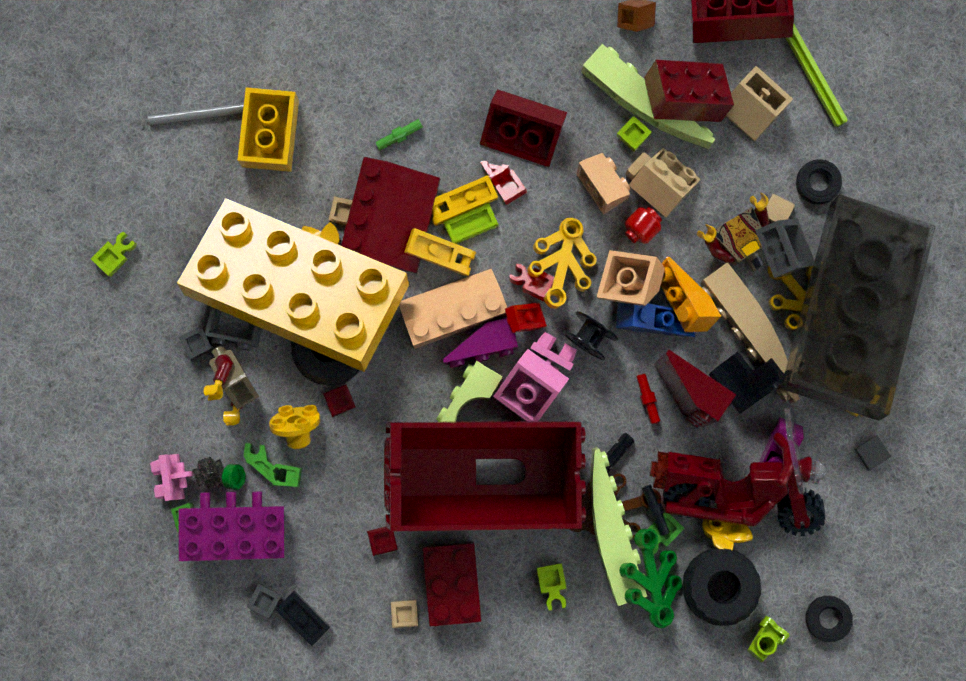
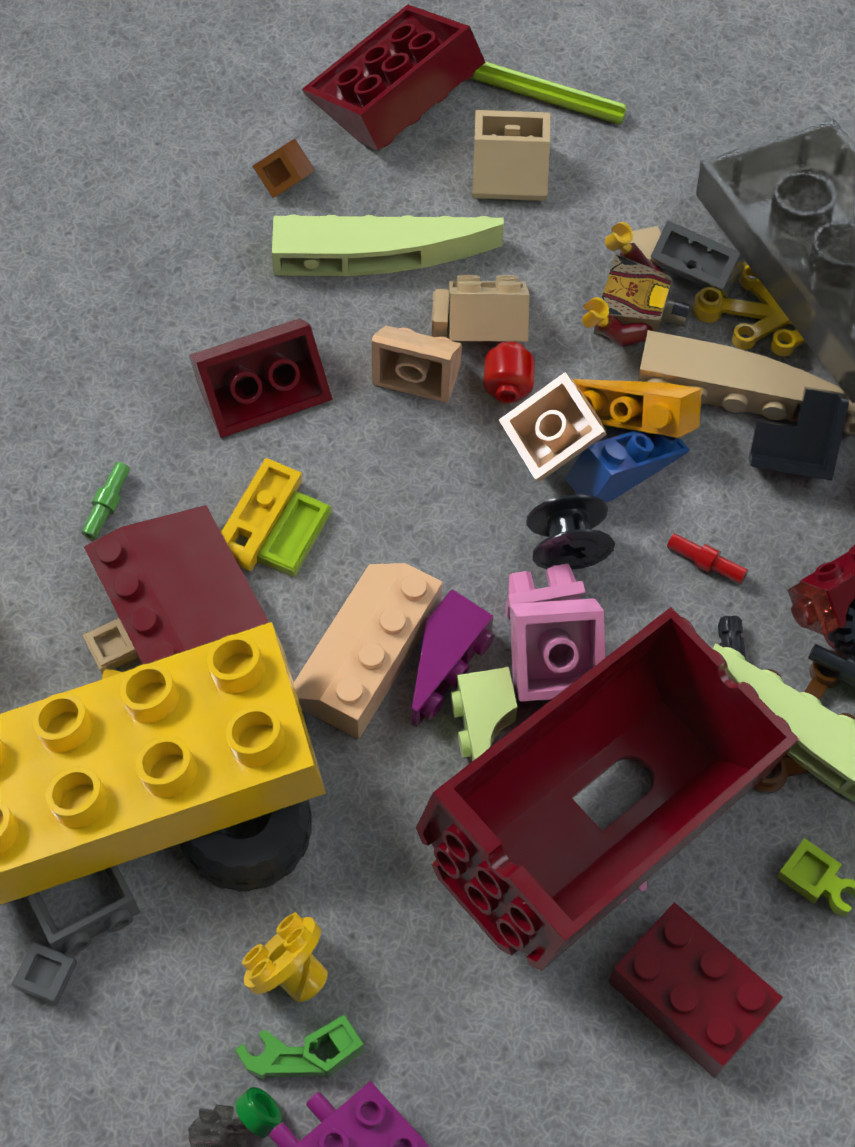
camera: 45 degrees left, 20 degrees down
(233, 380) = (146, 969): torso -> none
(339, 400) = (317, 885): dark red tile -> none
(382, 541) = (545, 1020): dark red tile -> none
(404, 613) = (667, 1094): tan tile -> none
(439, 251) = (286, 587): yellow plate -> none
(504, 181) = (295, 451): slope -> none
(525, 317) = (468, 577): red plate -> none
(533, 286) = (442, 534): red plate -> none
(564, 259) = (429, 445): yellow plant -> none
(633, 133) = (401, 288): lime plate -> none
(688, 91) = (424, 187): dark red brick -> none
(694, 392) = (756, 479): dark red slope -> none
(819, 166) = (659, 167): black tyre -> none

